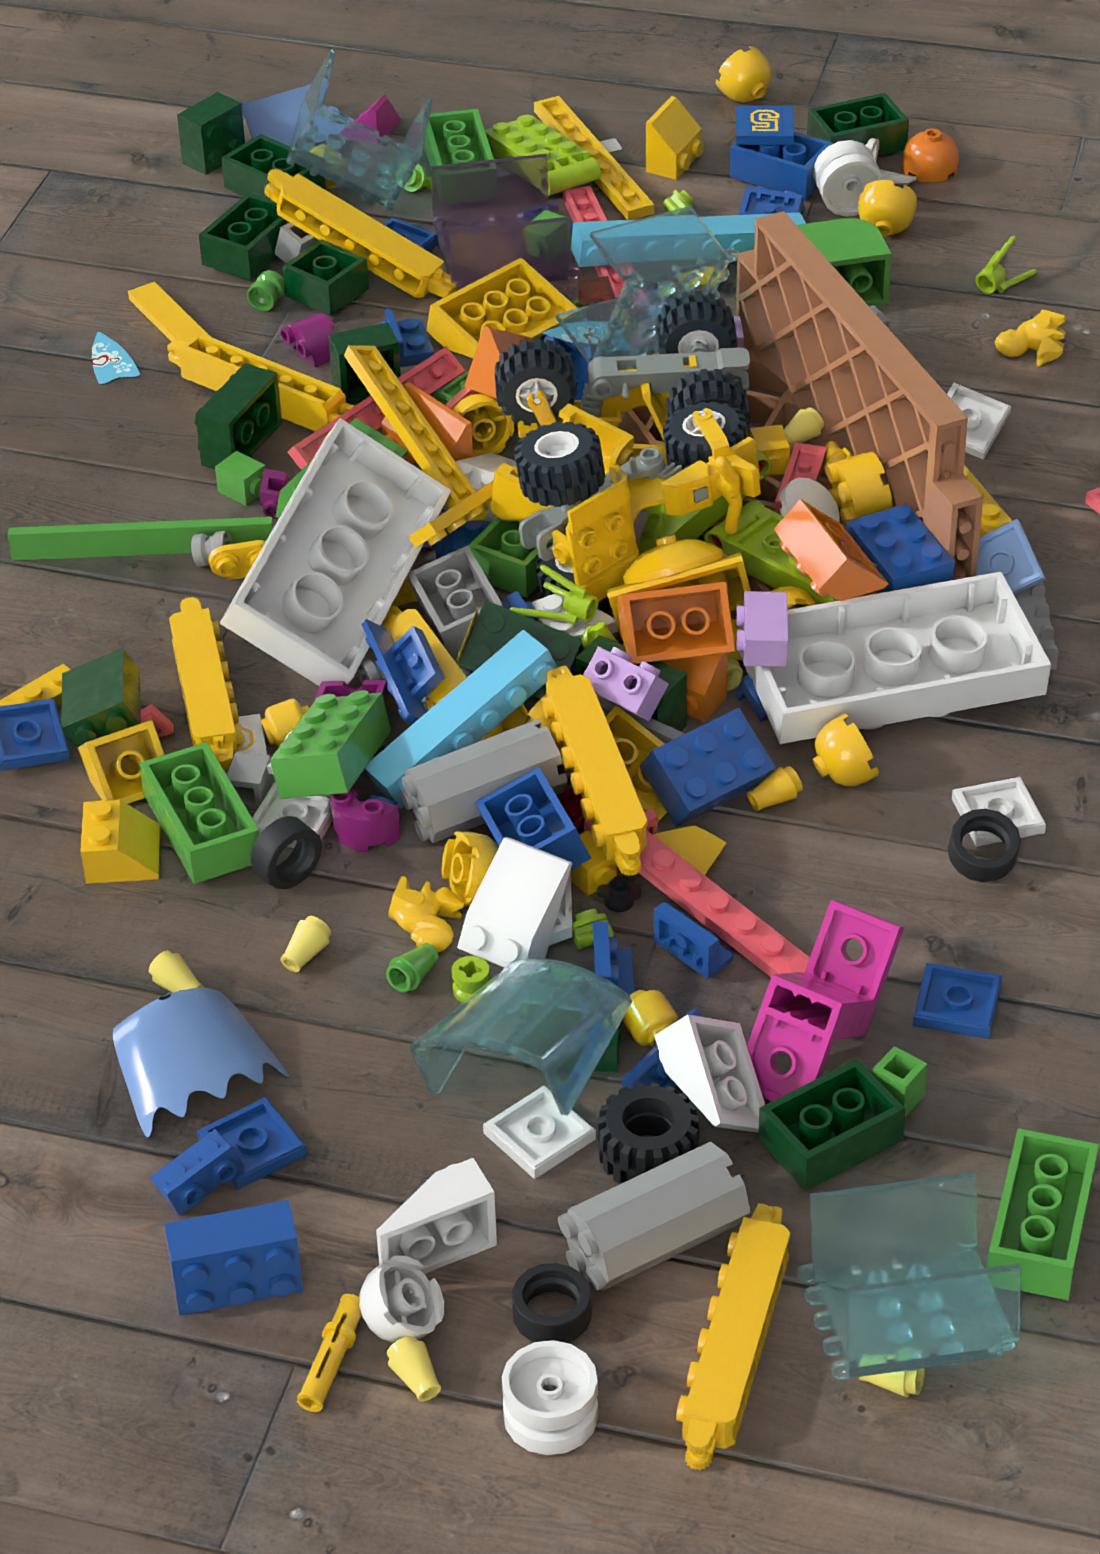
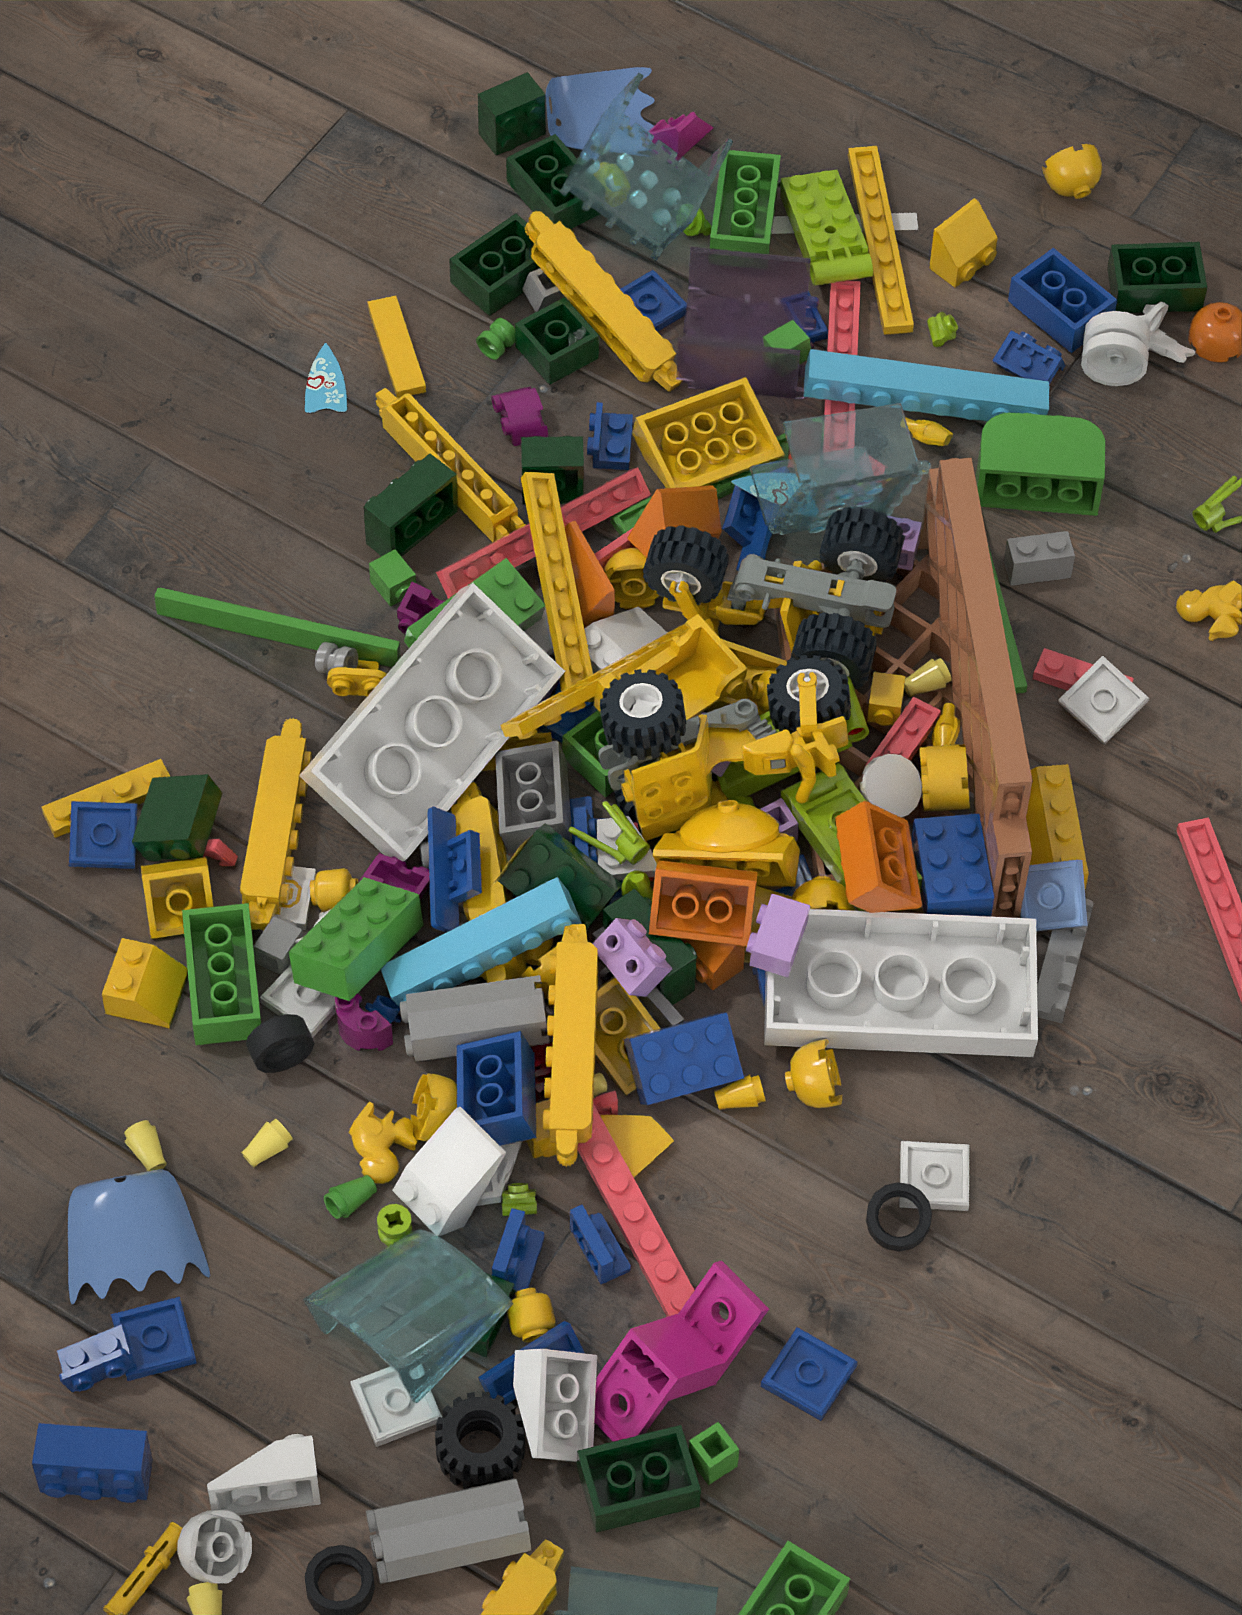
camera: 15 degrees right, 15 degrees up
(619, 894) = (554, 1176): black plate -> none
(764, 125) = (1055, 259): blue tile -> none
(887, 206) = (1138, 398): yellow cylinder -> none

